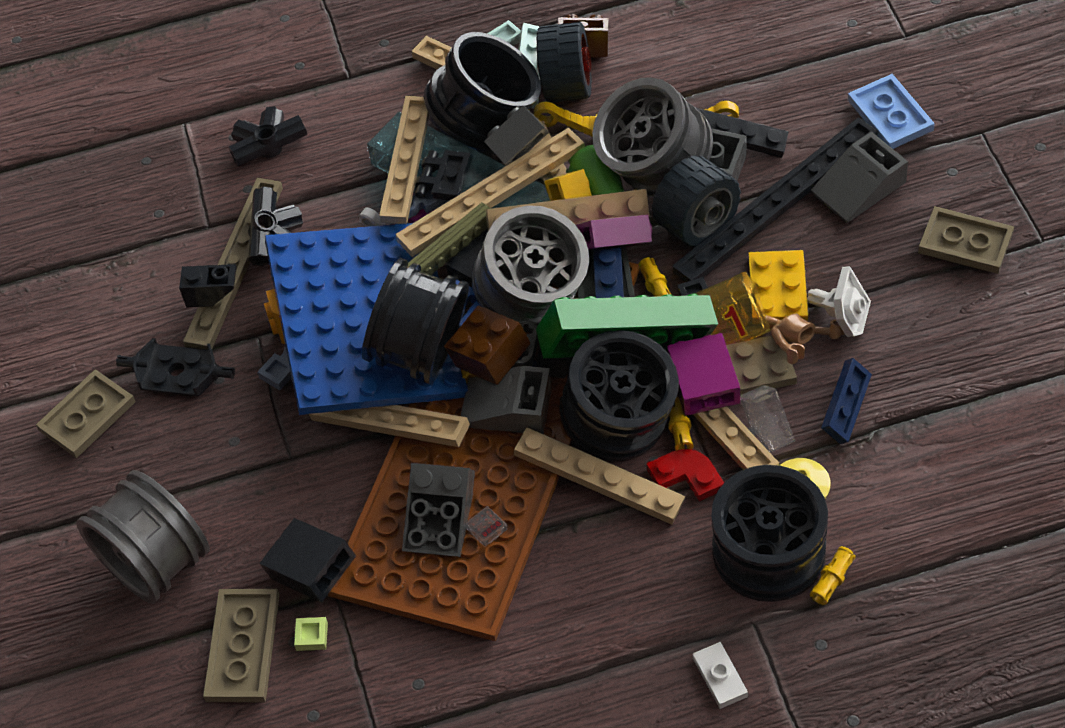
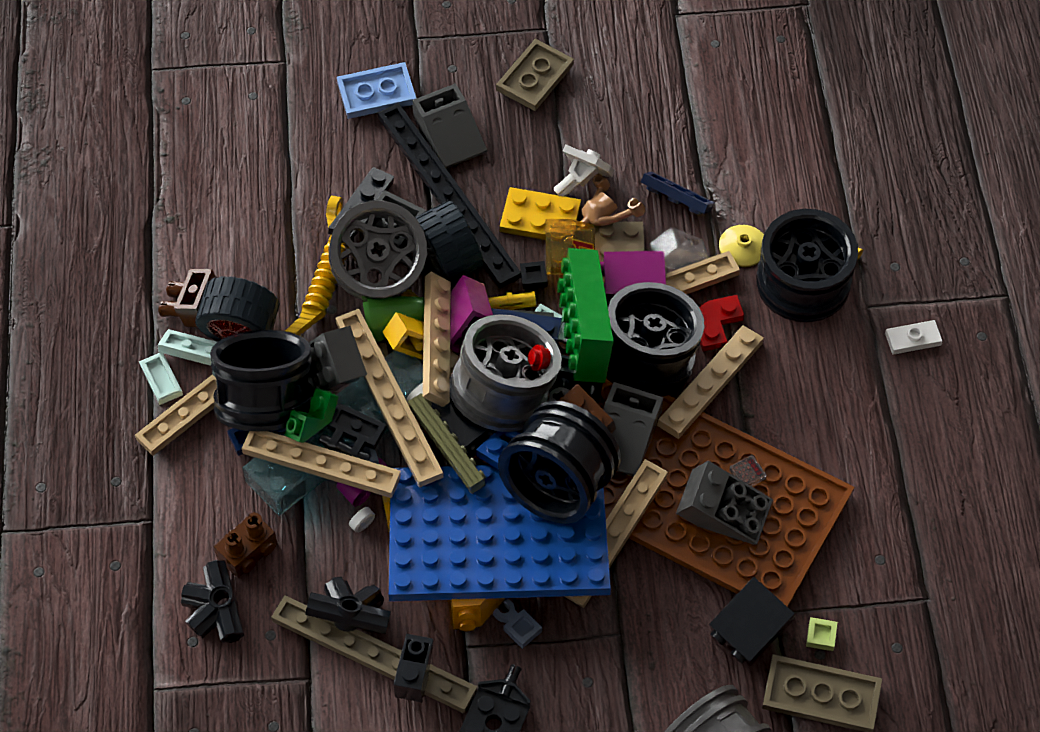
camera: 85 degrees left, 5 degrees up
(327, 140) = (246, 544): none -> reddish brown brick
(442, 134) = (304, 425): none -> green slope
(542, 283) = (539, 357): none -> red plate

